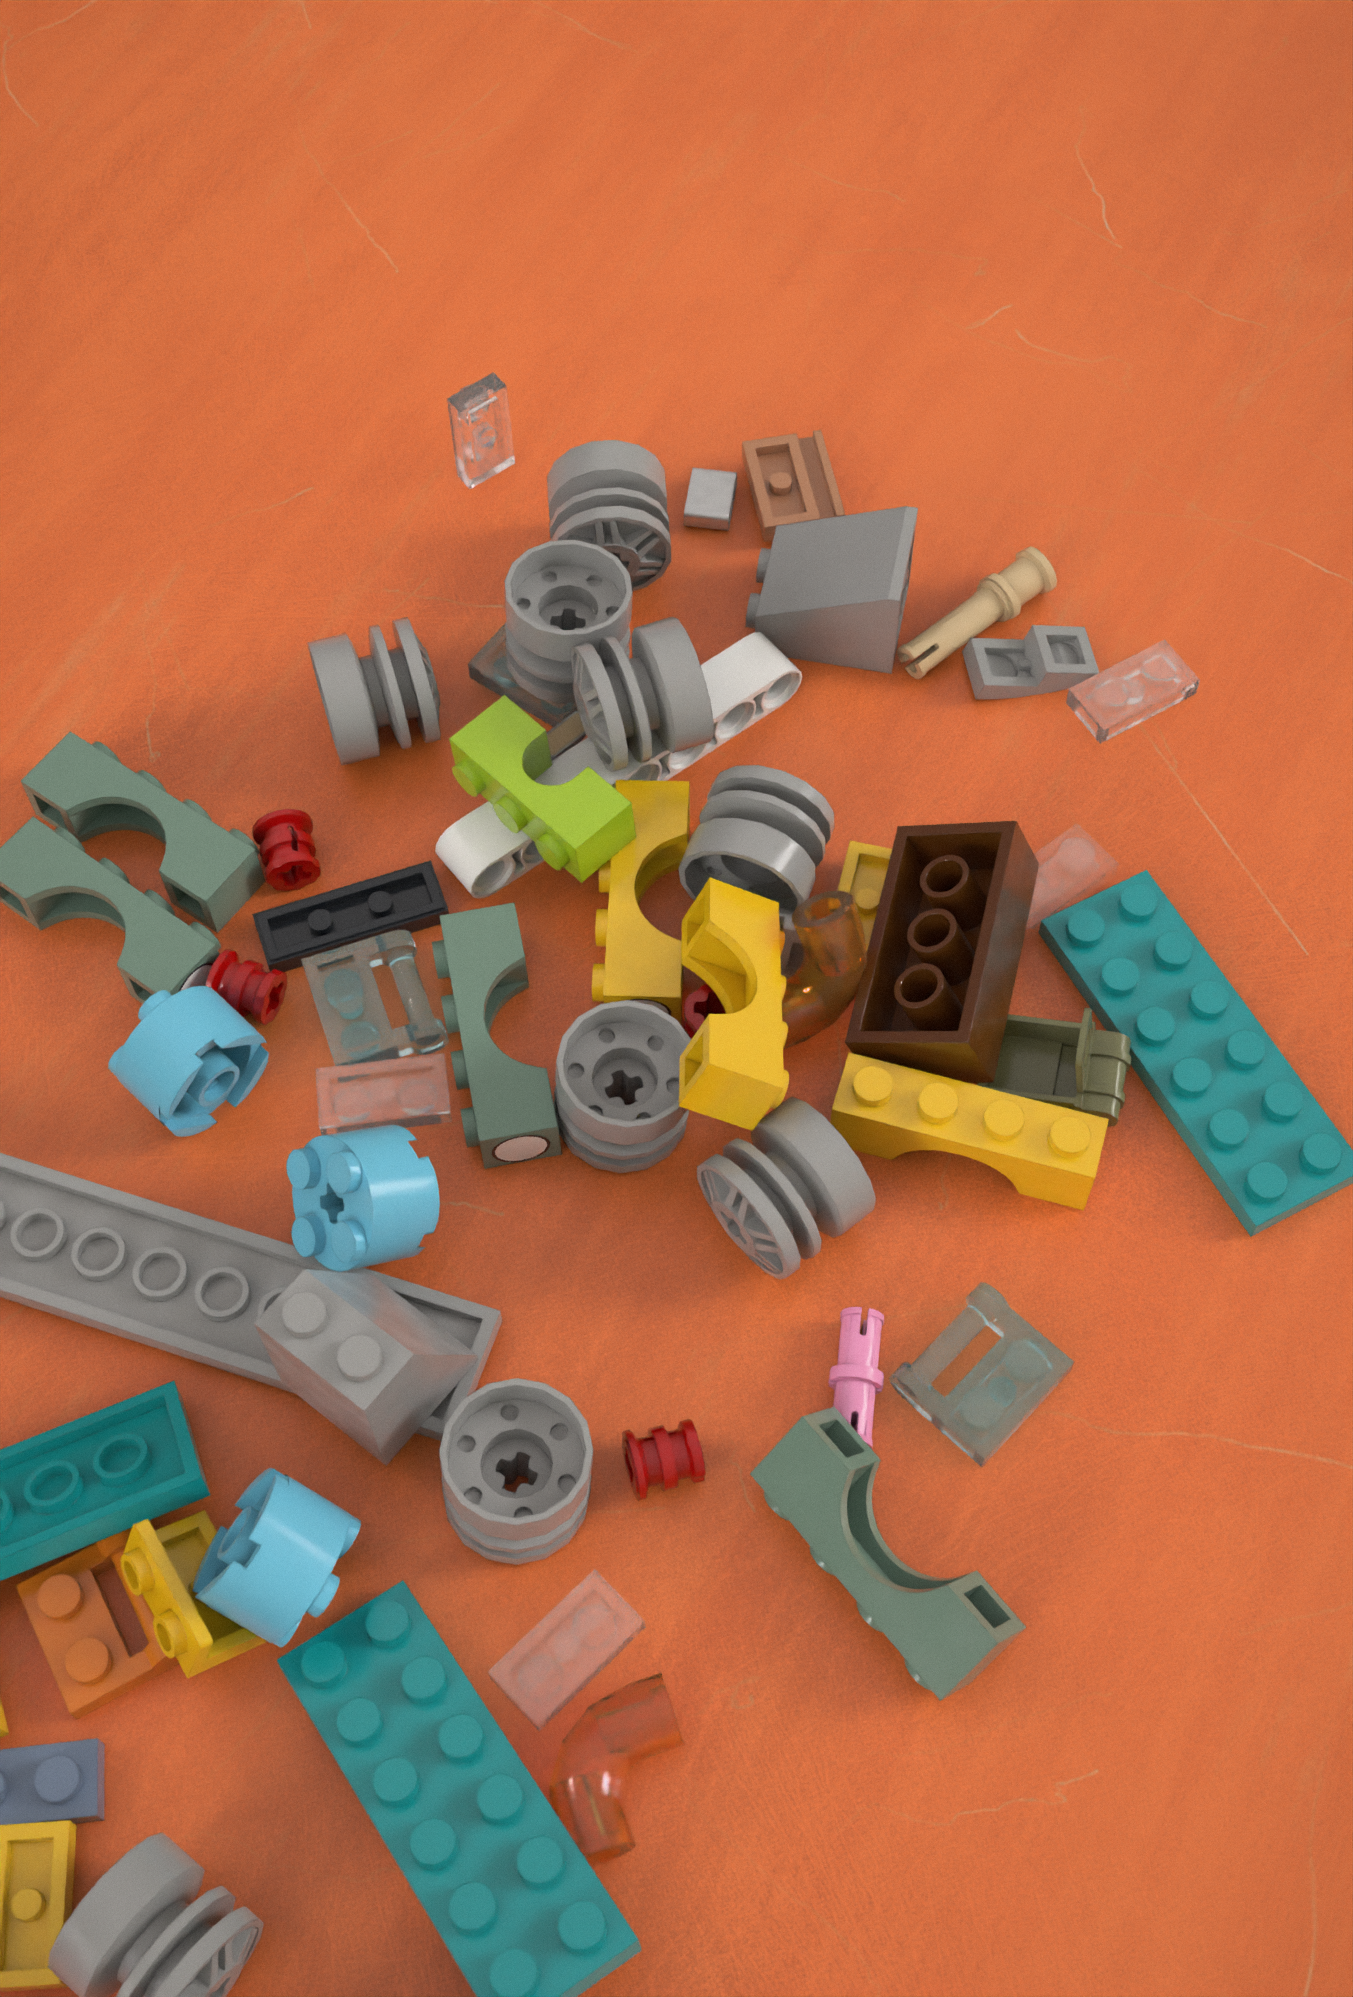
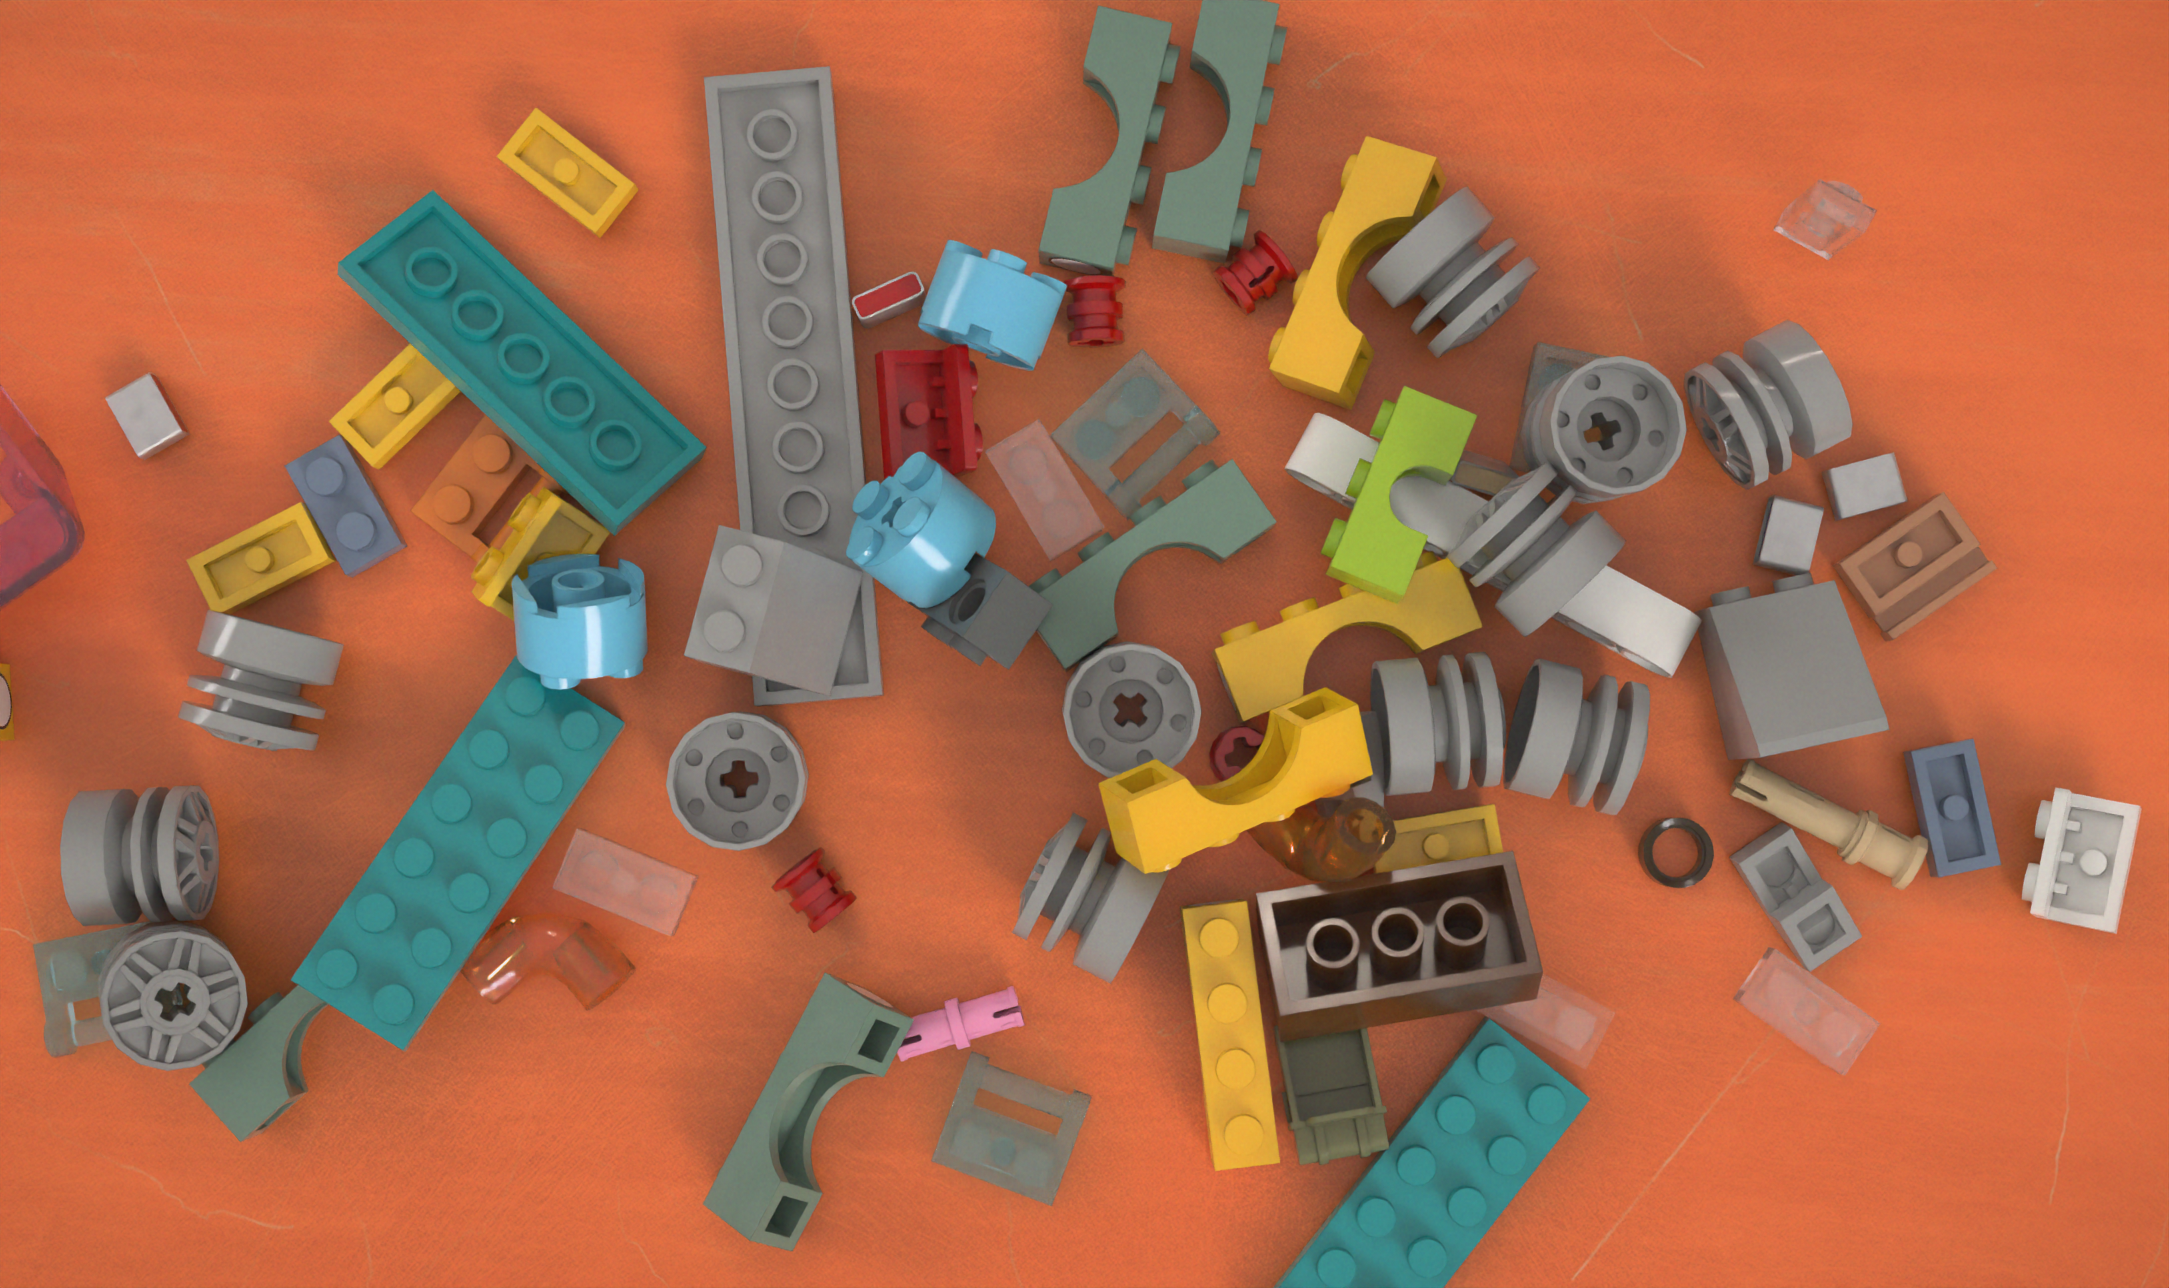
camera: 65 degrees right, 25 degrees up
(133, 1155) = (889, 300): none -> piece
(245, 1157) = (928, 408): none -> red bracket
(378, 810) = (1381, 201): none -> yellow arch
(390, 902) = (1217, 366): black tile -> none
(475, 1167) = (988, 615): none -> dark grey brick
(723, 562) = (1788, 535): none -> flat silver piece
(827, 734) = (1590, 740): none -> light grey wheel
(954, 712) = (1704, 856): none -> dark brown piece
(1000, 527) = (1952, 808): none -> sand blue plate
(1086, 459) = (2082, 860): none -> white bracket

